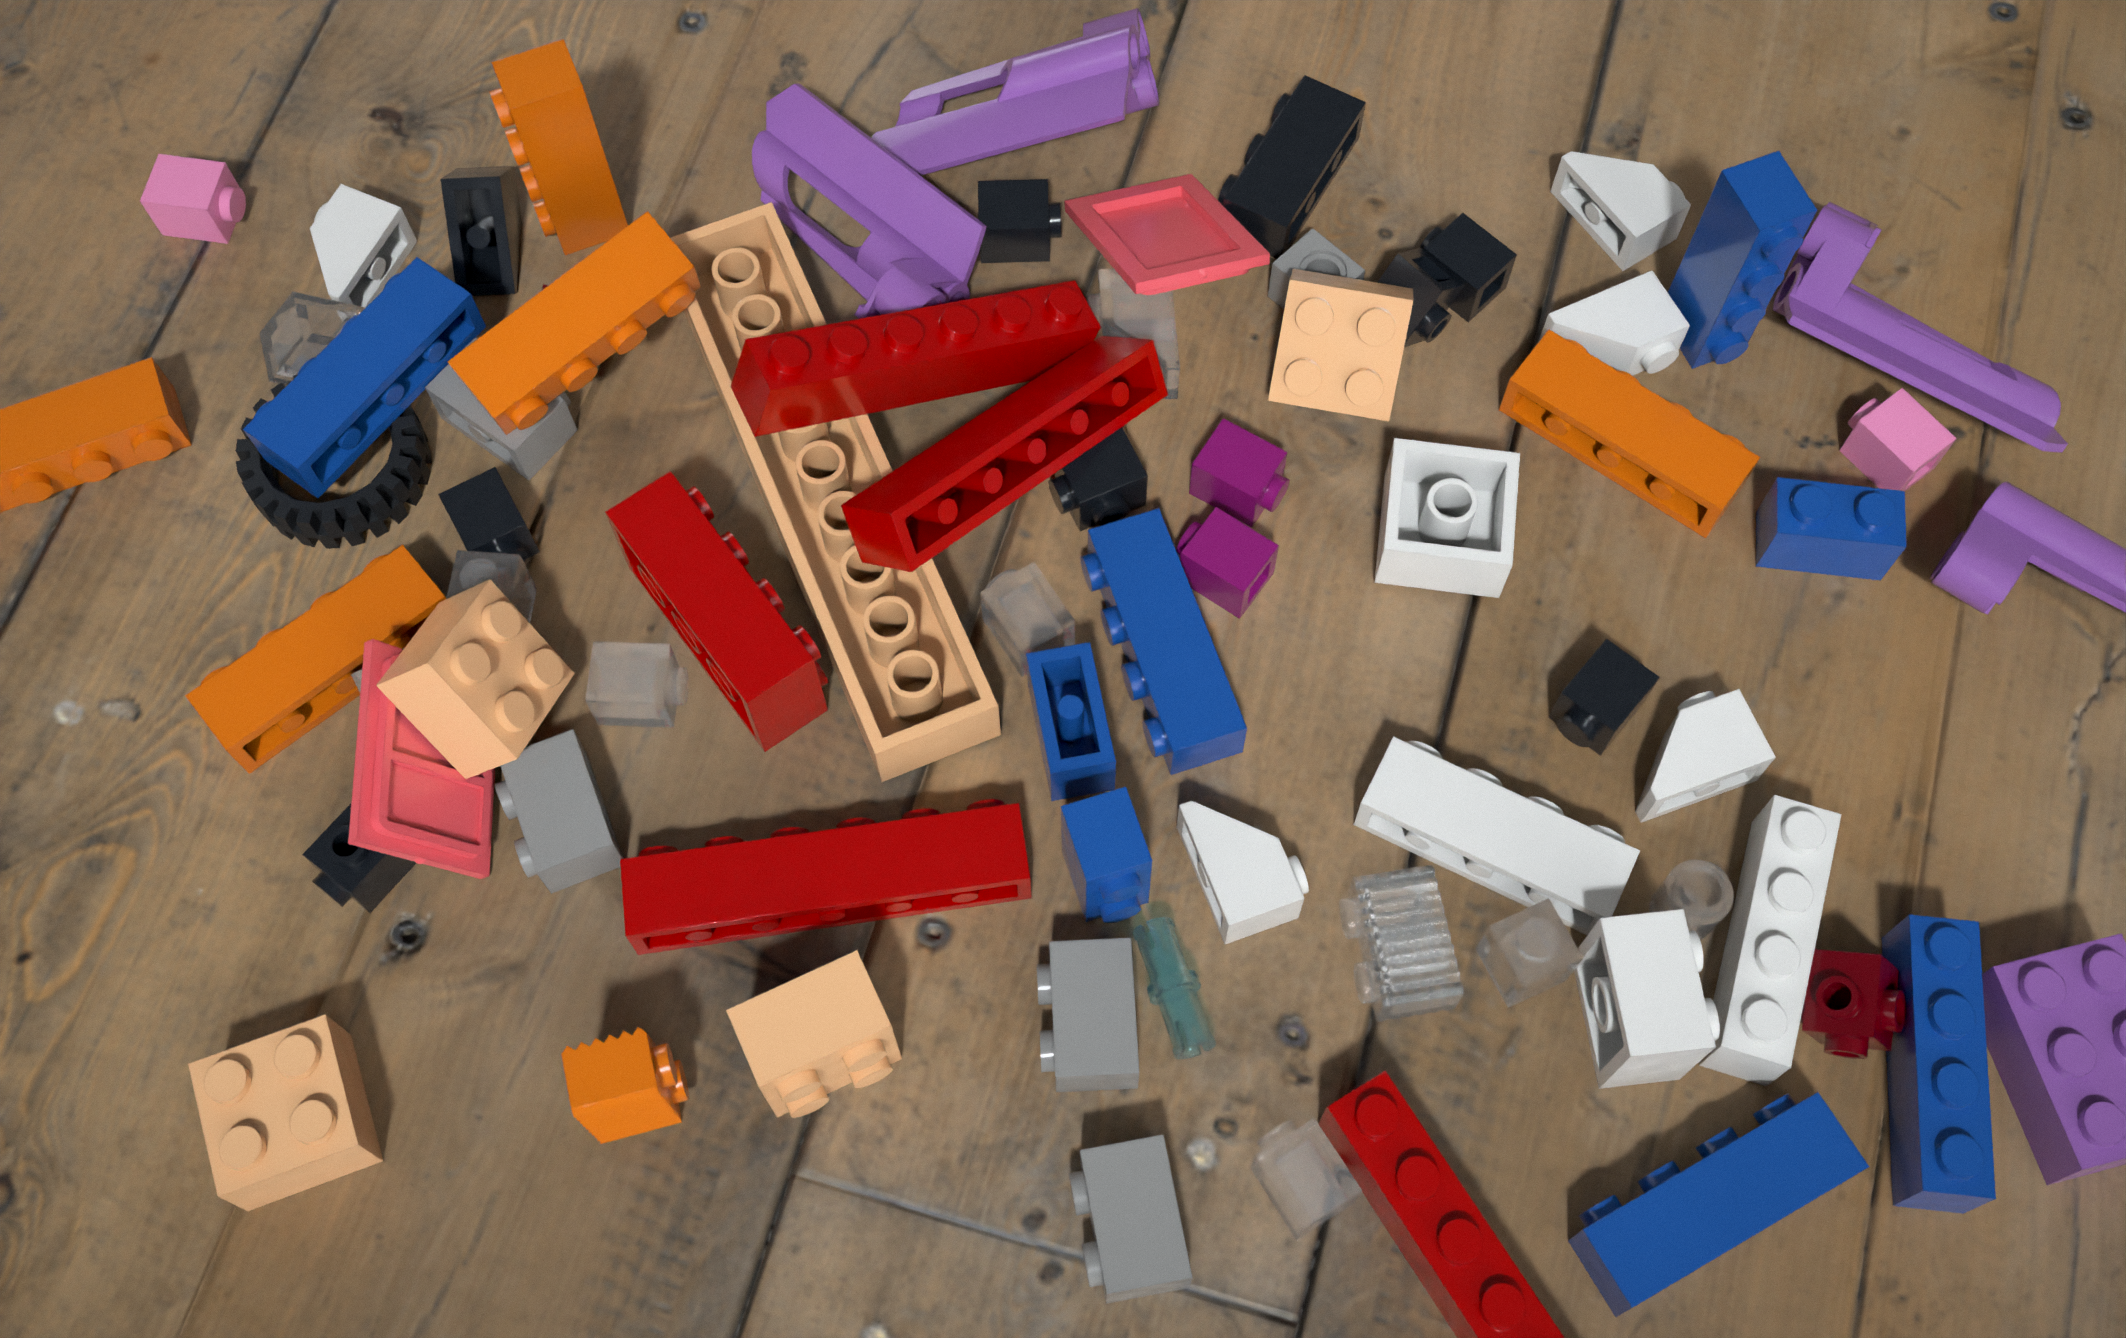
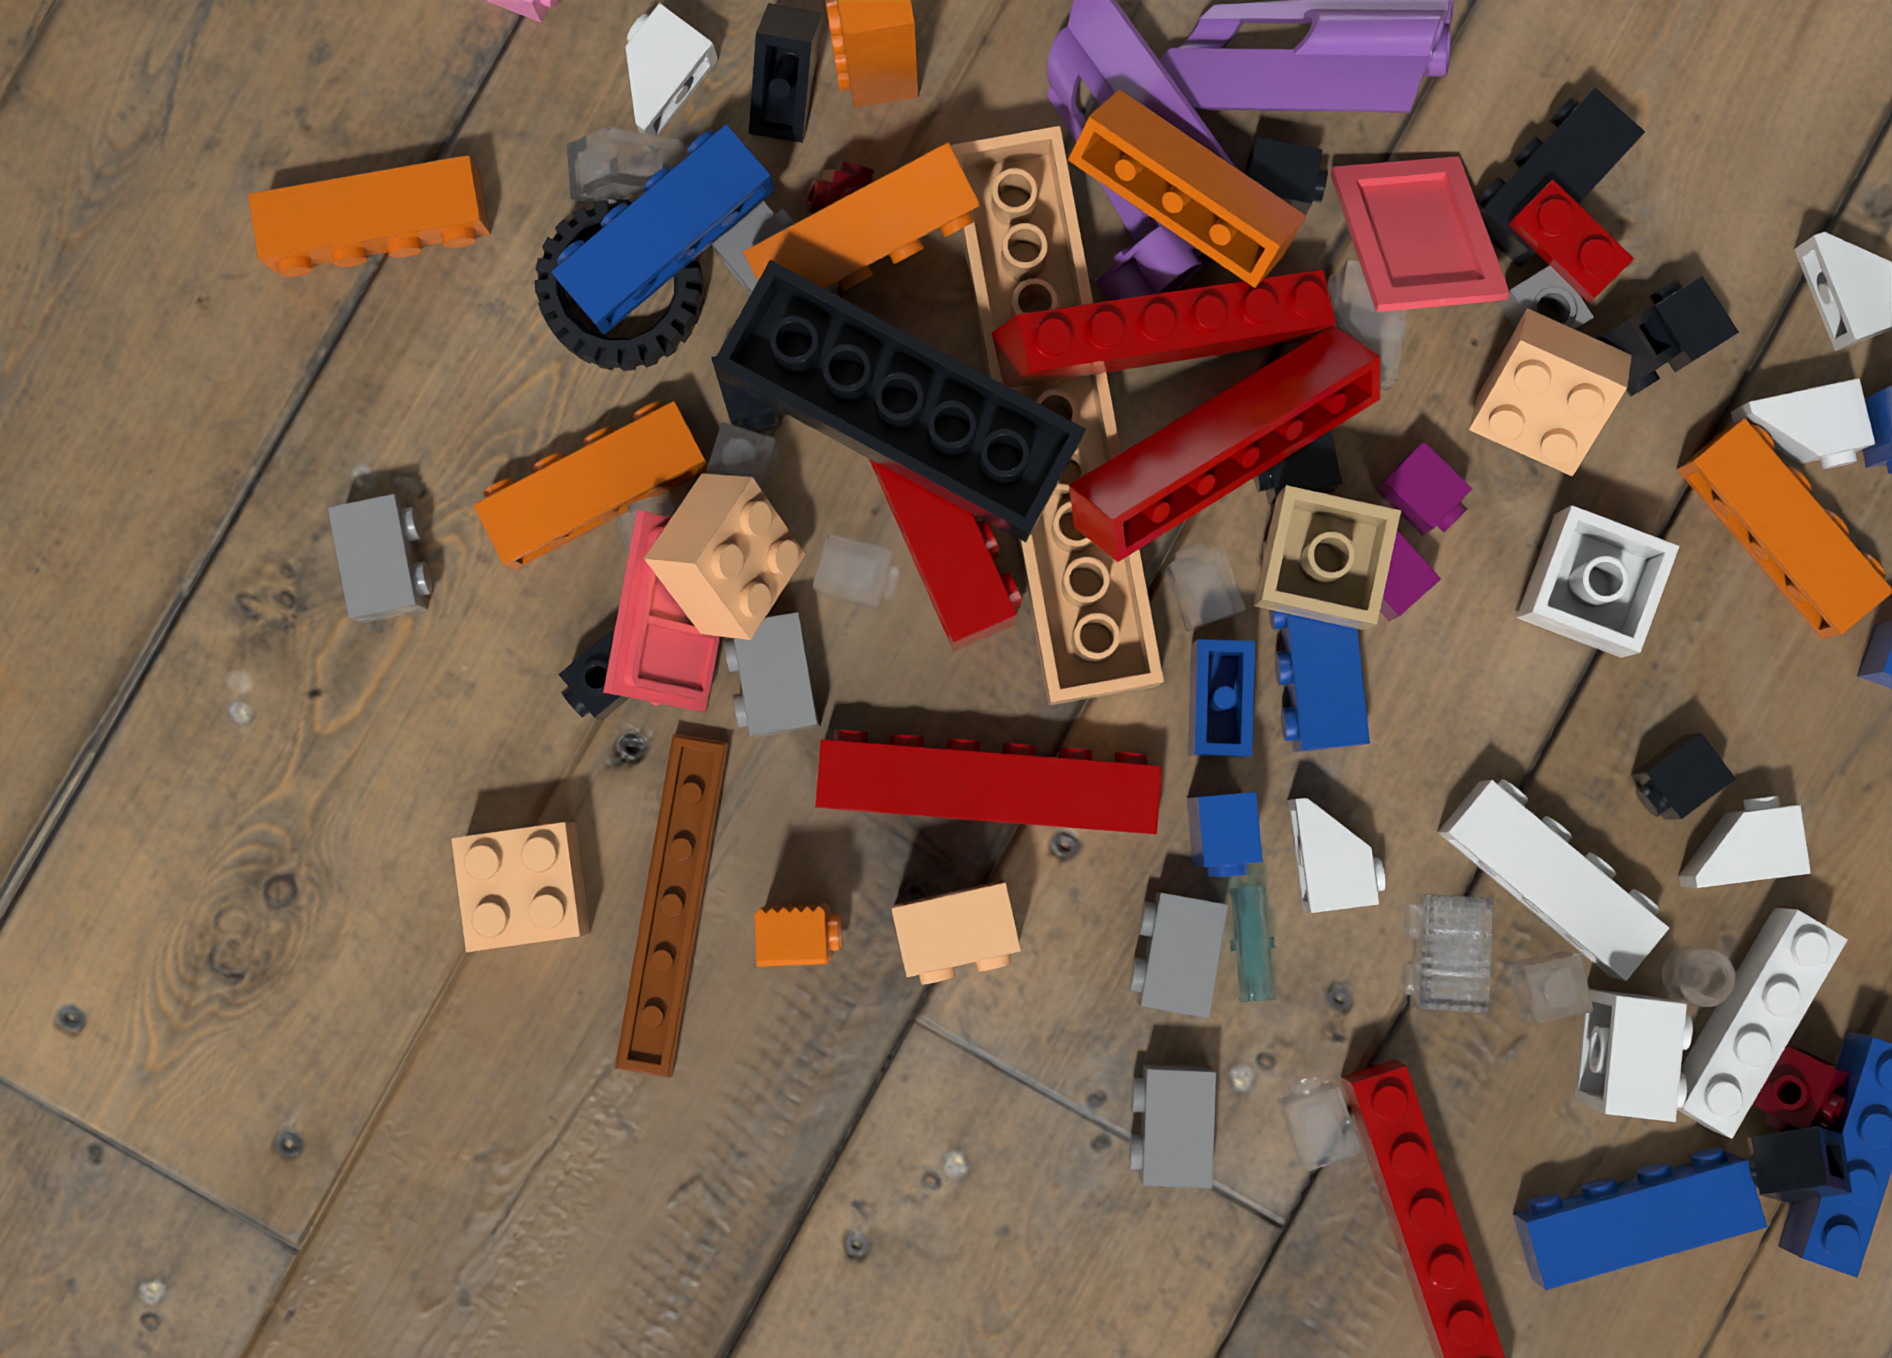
camera: 15 degrees right, 20 degrees up
(86, 784) = (380, 558): none -> light grey brick
(477, 1111) = (672, 906): none -> dark orange tile
(635, 457) = (898, 401): none -> black brick
(912, 224) = (1186, 187): none -> orange brick
(1145, 535) = (1327, 558): none -> tan brick
(1320, 205) = (1571, 241): none -> red plate
(1879, 1076) = (1800, 1164): none -> black brick

